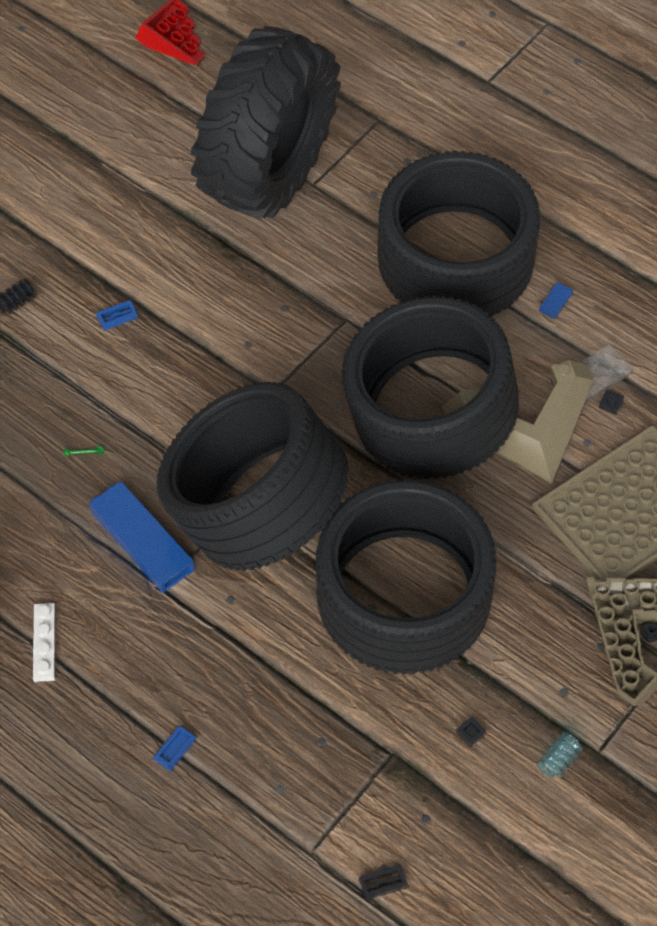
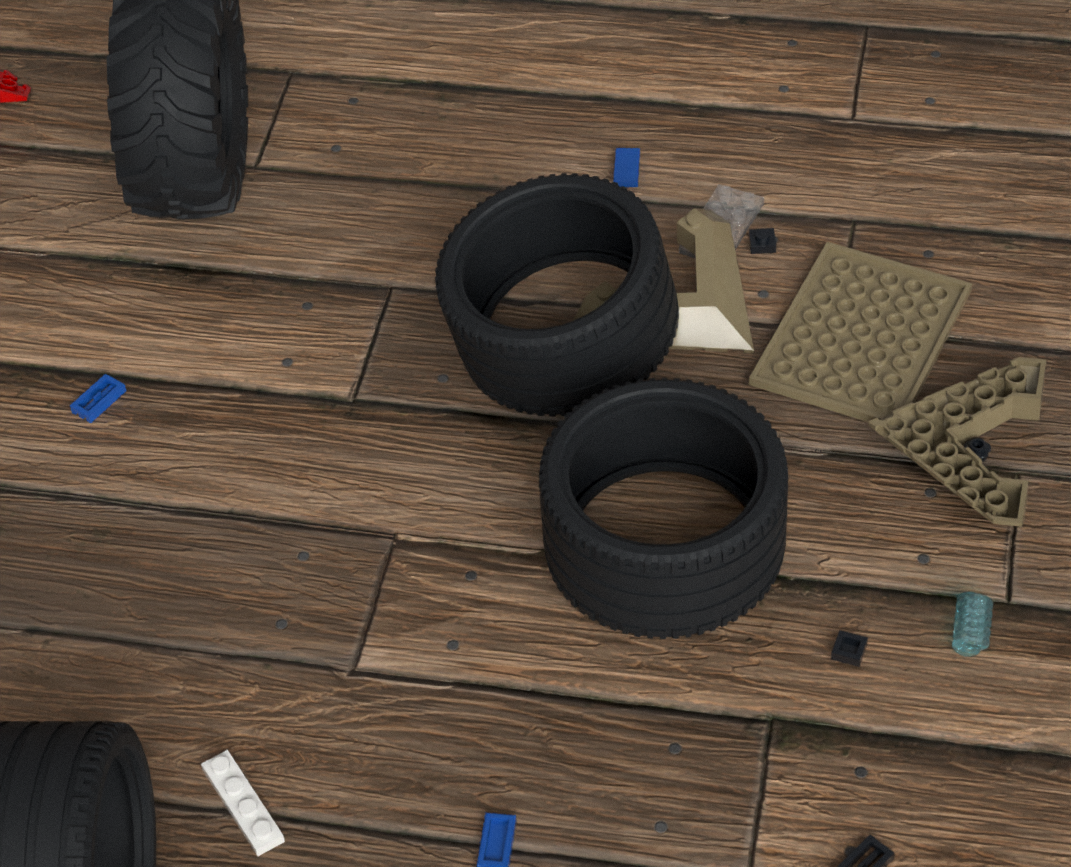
camera: 25 degrees left, 10 degrees down
(100, 450) = (173, 554): green hinge -> none
(141, 536) = (294, 622): blue brick -> none
(278, 509) = (462, 506): black tyre -> none
(466, 185) = (462, 81): black tyre -> none

